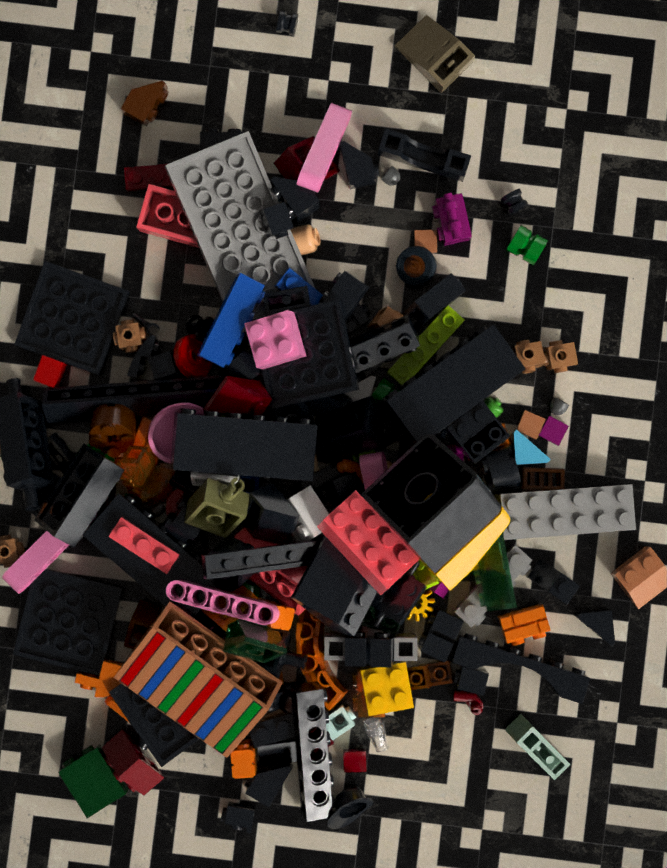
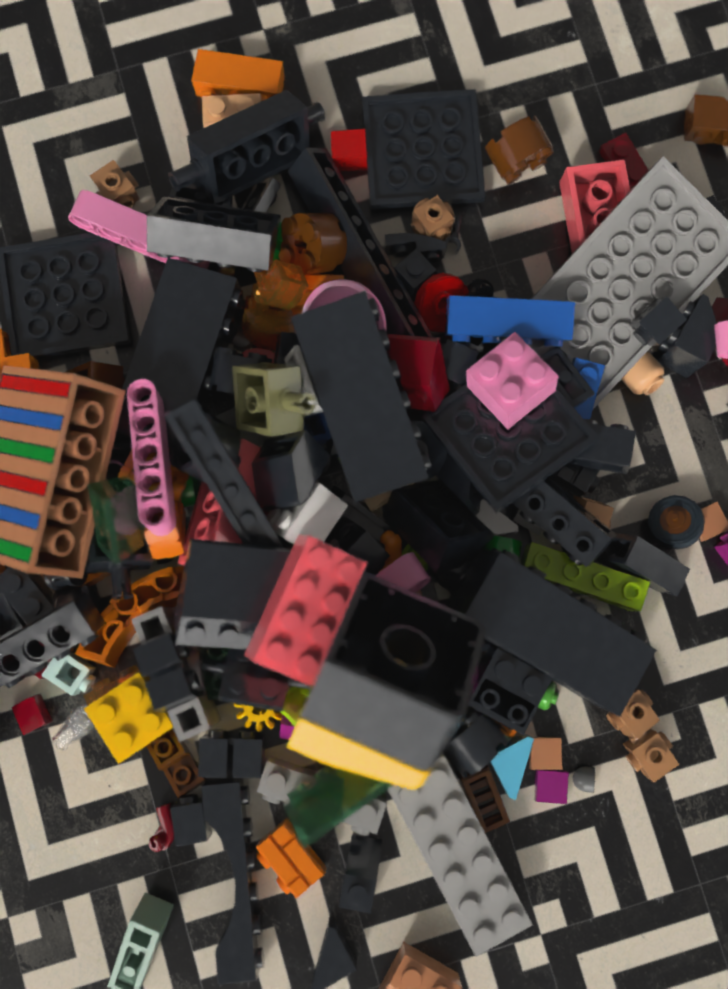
camera: 65 degrees right, 5 degrees down
(105, 251) = (520, 148): none -> reddish brown brick
(144, 545) = (185, 334): coral plate -> none

